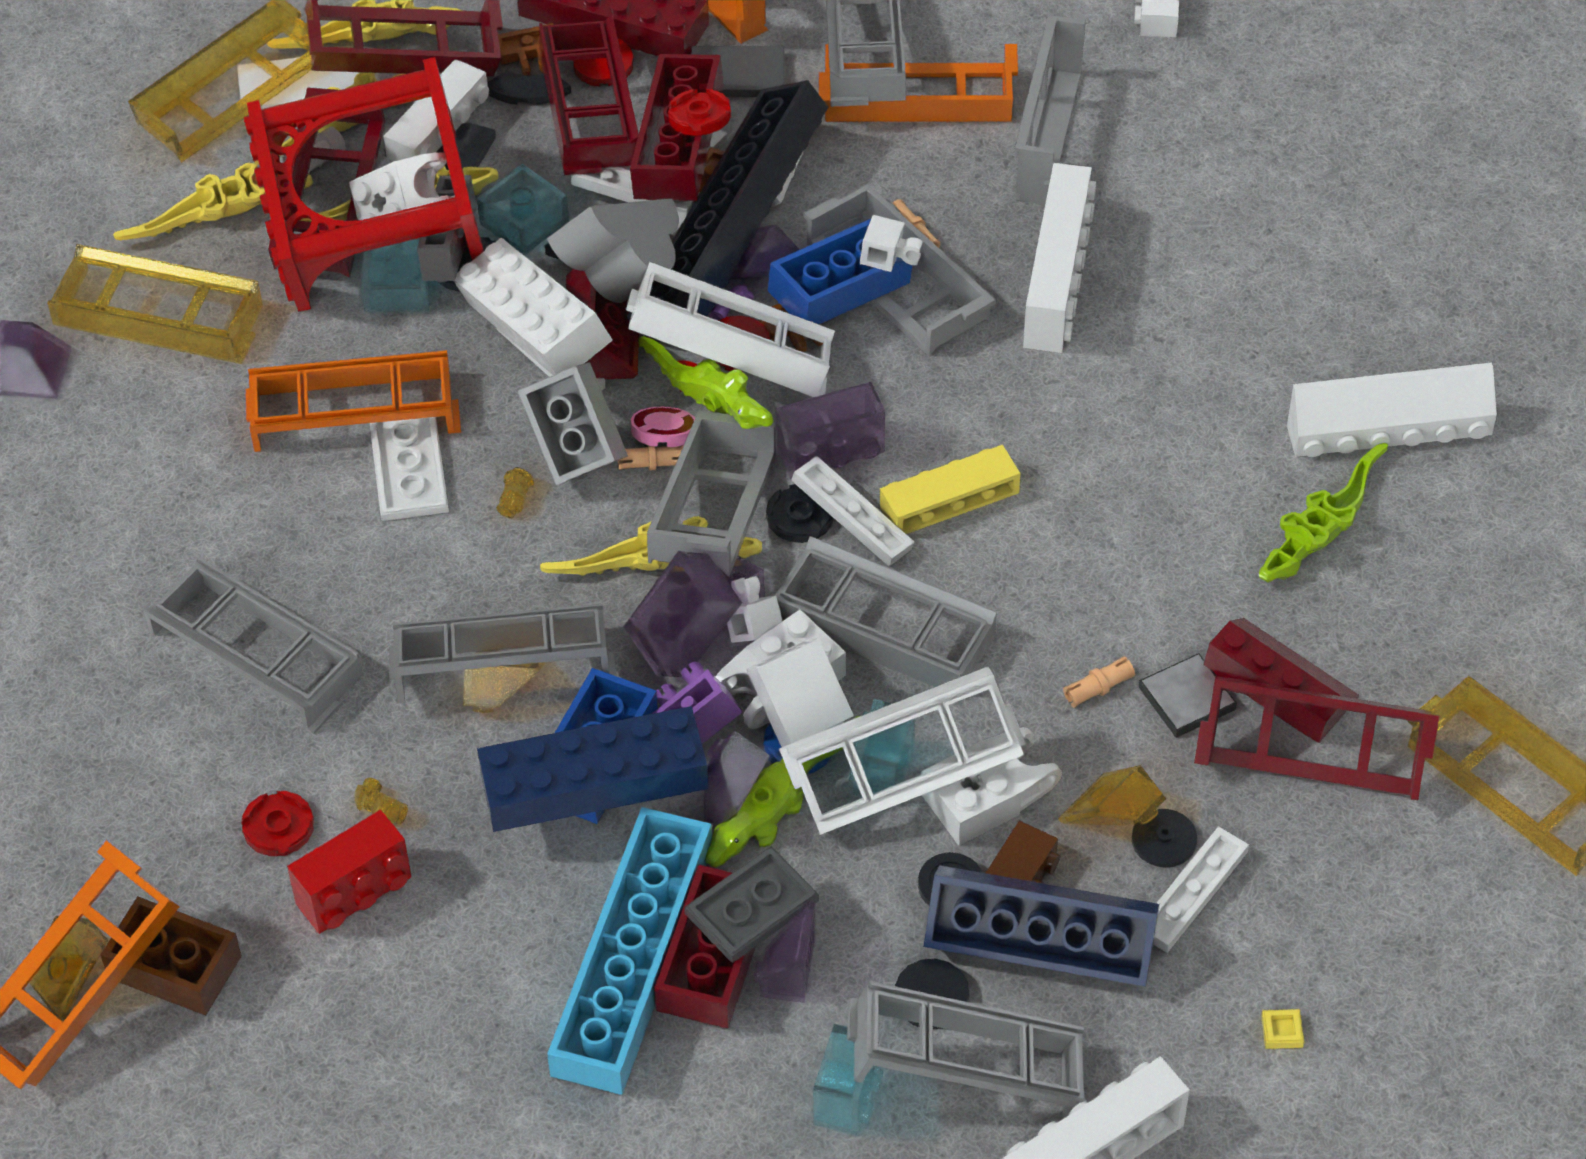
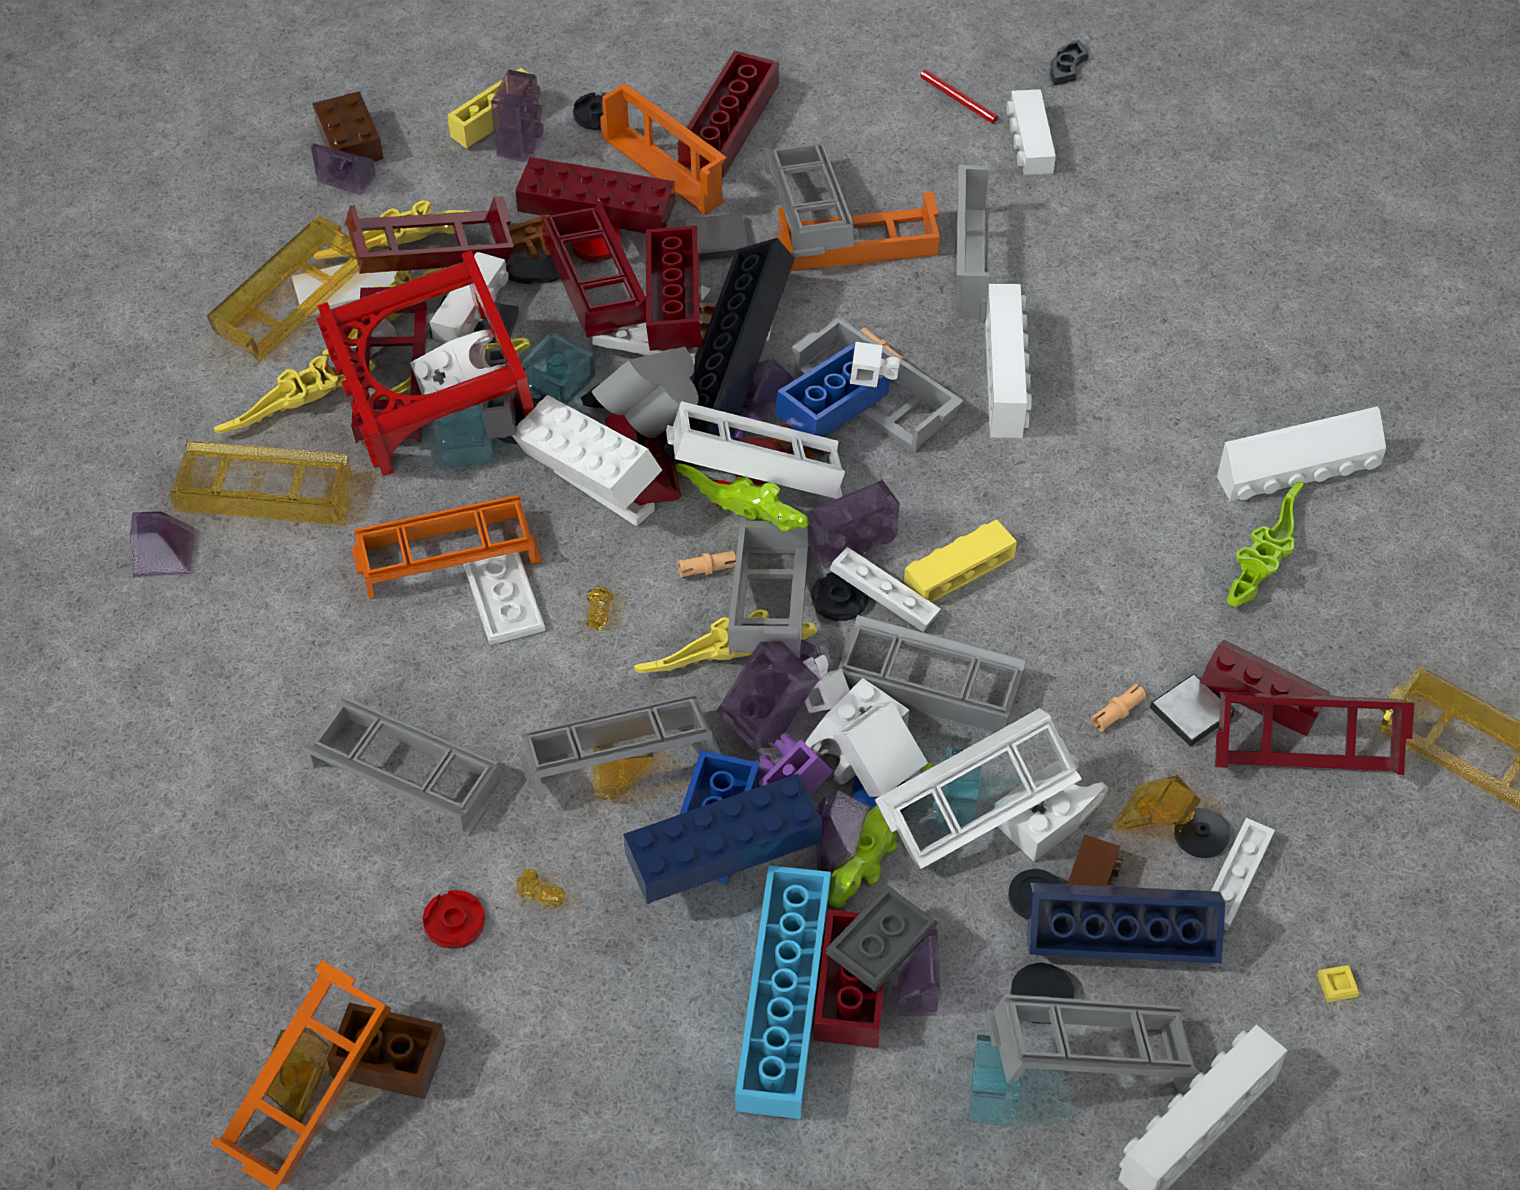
camera: 10 degrees left, 0 degrees up
(350, 872) = (529, 955): red brick -> none
(572, 423) = (641, 544): light grey brick -> none
(661, 425) = (712, 536): bright pink tile -> none
(699, 112) = (693, 273): red tile -> none

